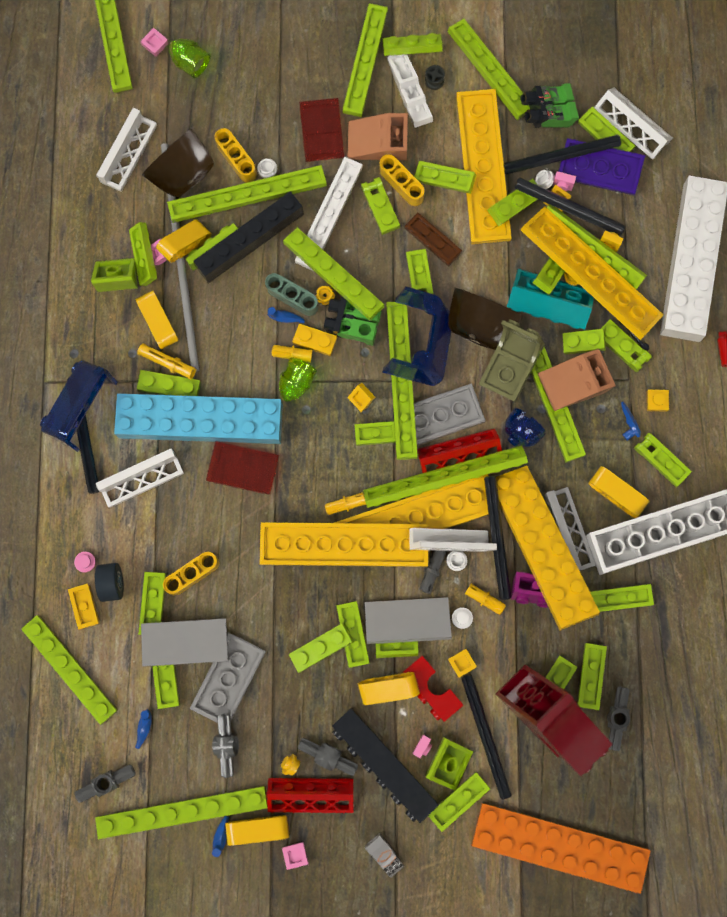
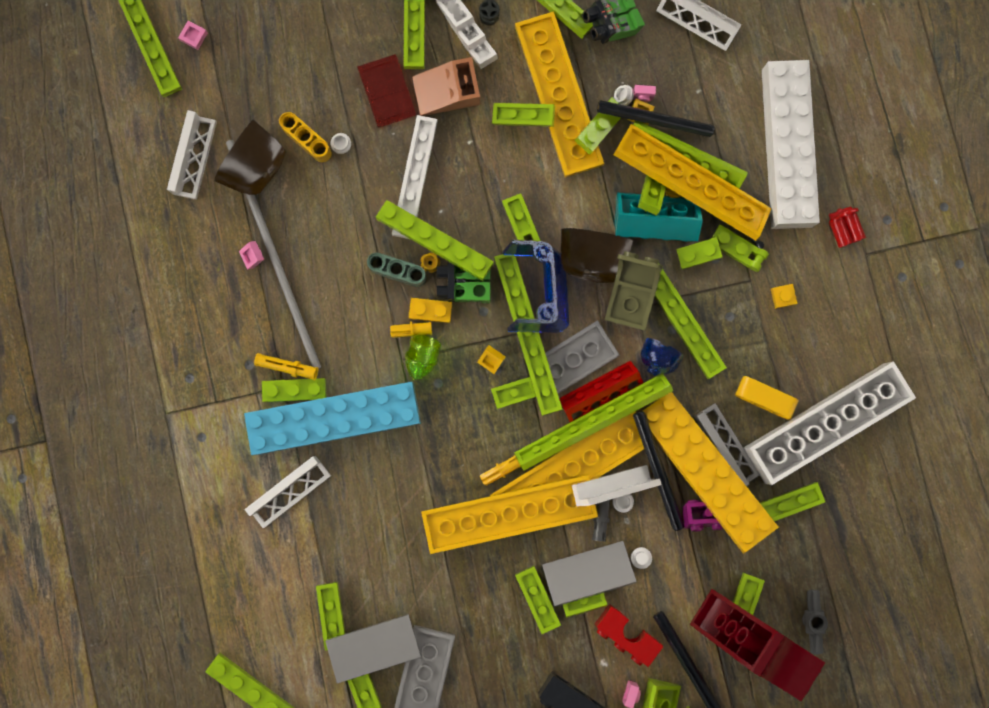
camera: 25 degrees left, 5 degrees up
(74, 402) = (203, 433): clear blue windscreen -> none
(83, 606) = (263, 634): yellow plate -> none
(85, 562) = (253, 589): bright pink plate -> none
(87, 456) = (219, 459): black axle -> none
(109, 582) = (282, 606): black wheel -> none
(114, 275) = (211, 288): lime slope -> none
(143, 254) = (235, 260): lime plate -> none
(156, 319) = (265, 326): yellow beam -> none
(181, 574) = (358, 586): yellow beam -> none
(183, 240) = (273, 239): yellow beam -> none
(187, 55) = (230, 43): clear neon green helmet -> none
(209, 243) = (304, 237): lime plate -> none
(242, 468) = (389, 457): clear red piece -> none
(246, 194) = (325, 175): lime plate -> none
(249, 237) = (339, 220): black brick -> none
(284, 316) = (394, 293): blue bar -> none
(321, 648) = (509, 621): lime plate -> none
(380, 206) = (465, 158): lime plate -> none
(388, 688) = (586, 647): yellow beam -> none
(399, 171) = (477, 118): yellow beam -> none
(433, 239) = (525, 180): reddish brown tile -> none
(462, 663) = (651, 602): yellow plate -> none
(485, 599) = (659, 534): yellow axle -> none
(562, 154) = (636, 66): black axle -> none
(577, 380) = (702, 295): nougat slope -> none
(592, 676) = (780, 586): lime plate -> none
(601, 128) = (675, 35): lime plate -> none
(605, 169) = (678, 69): dark purple tile -> none
(612, 240) = (704, 143): yellow plate -> none
(634, 429) = (763, 324): blue bar -> none
(663, 460) = (802, 355): lime plate -> none

